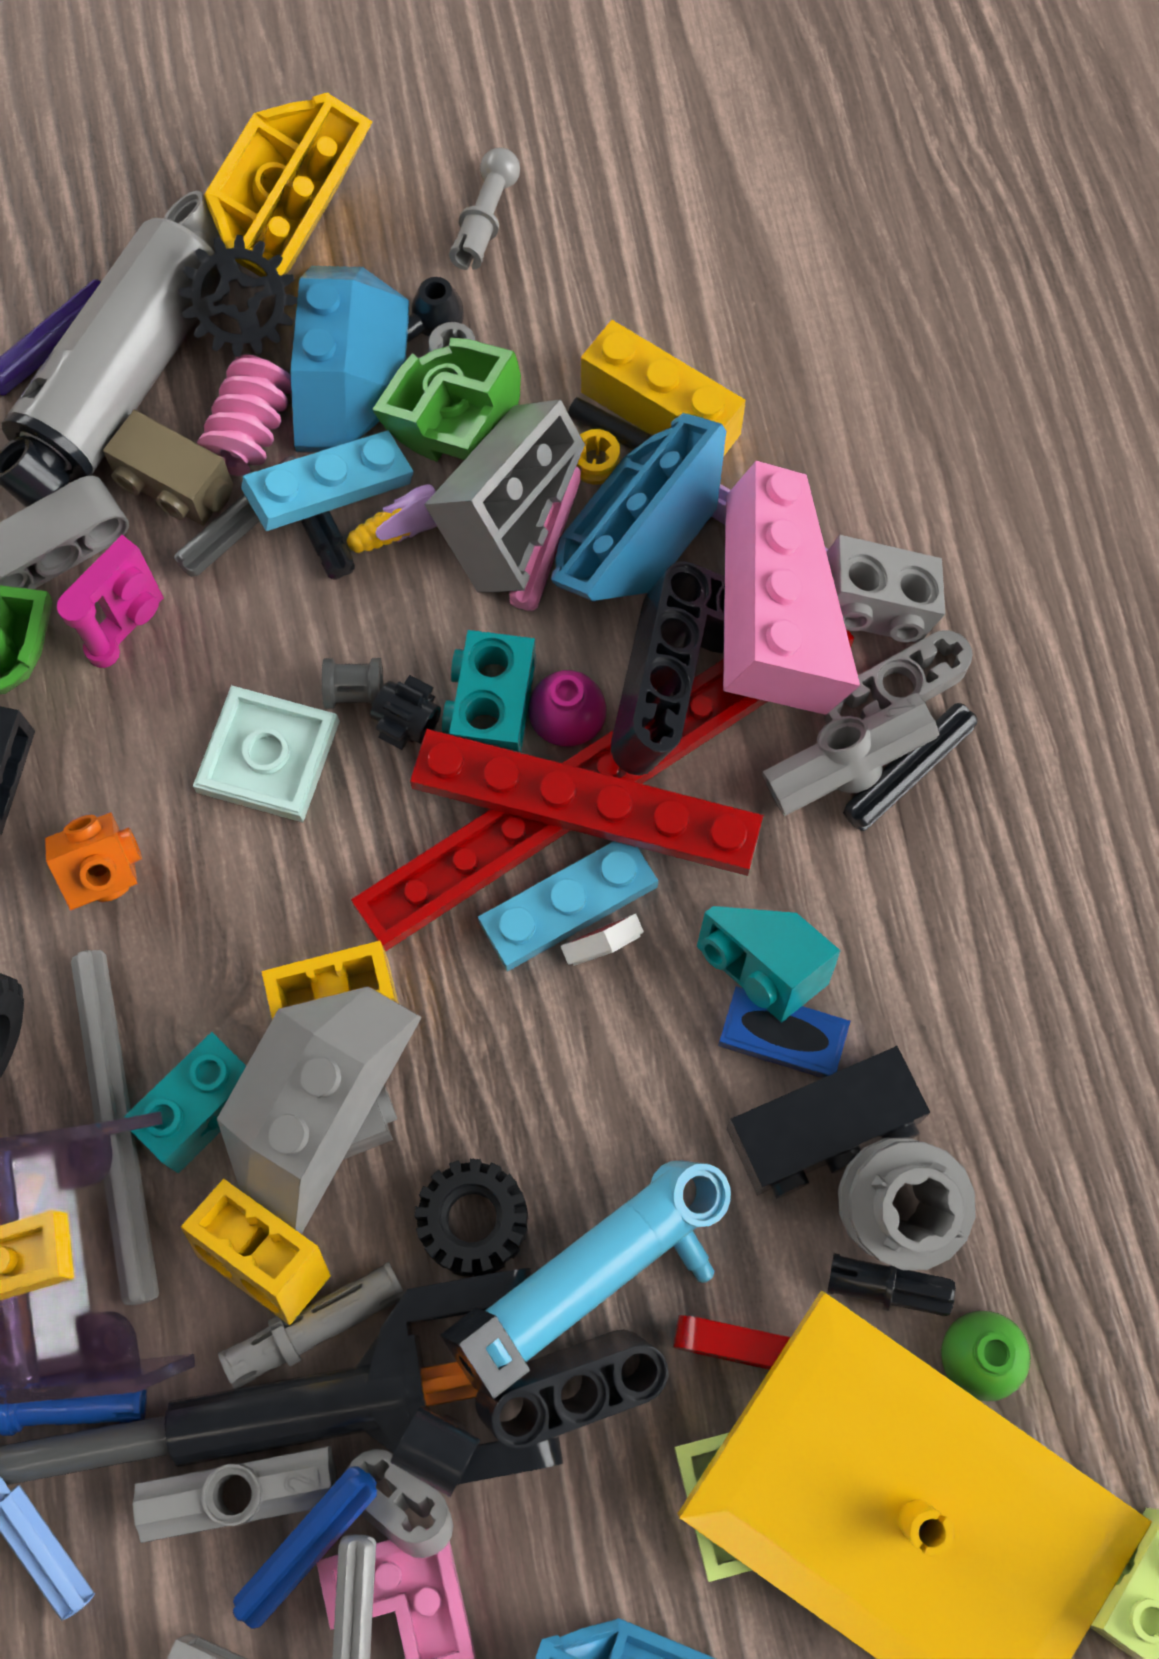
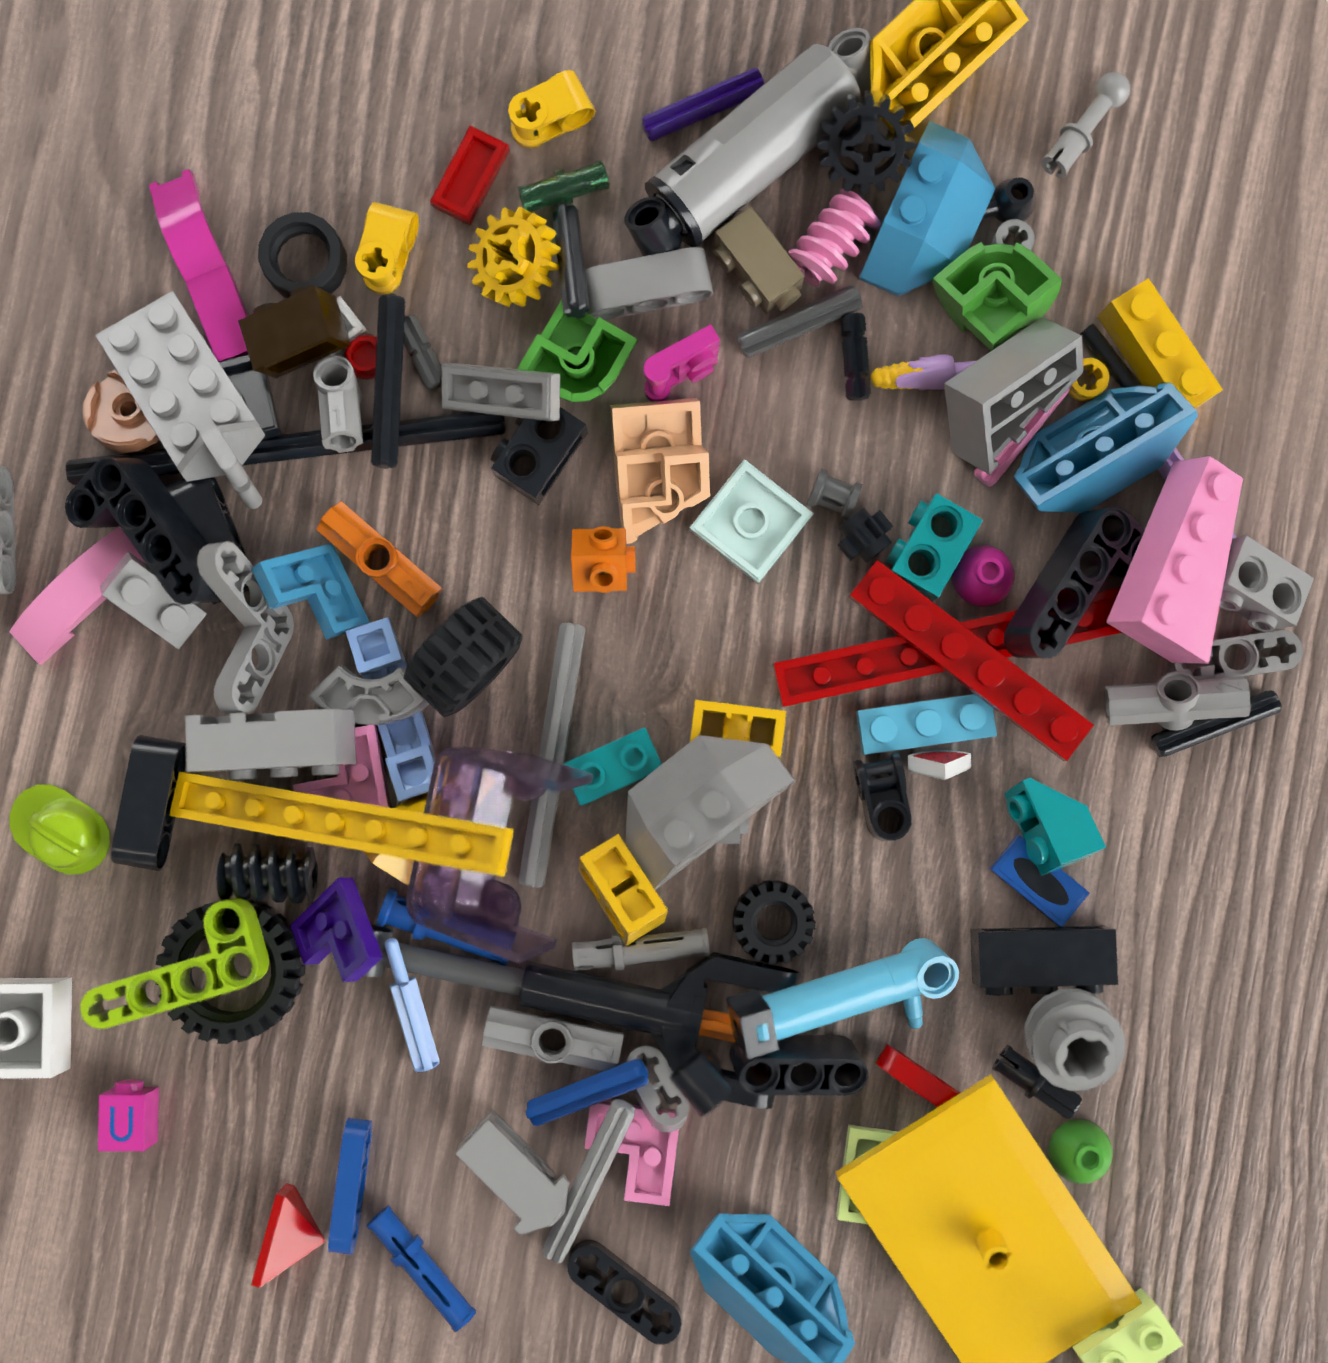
camera: 20 degrees right, 15 degrees up
(127, 727) = (657, 461): none -> light nougat slope
(326, 480) = (875, 321): medium azure plate -> none
(543, 999) = (883, 793): none -> black piece

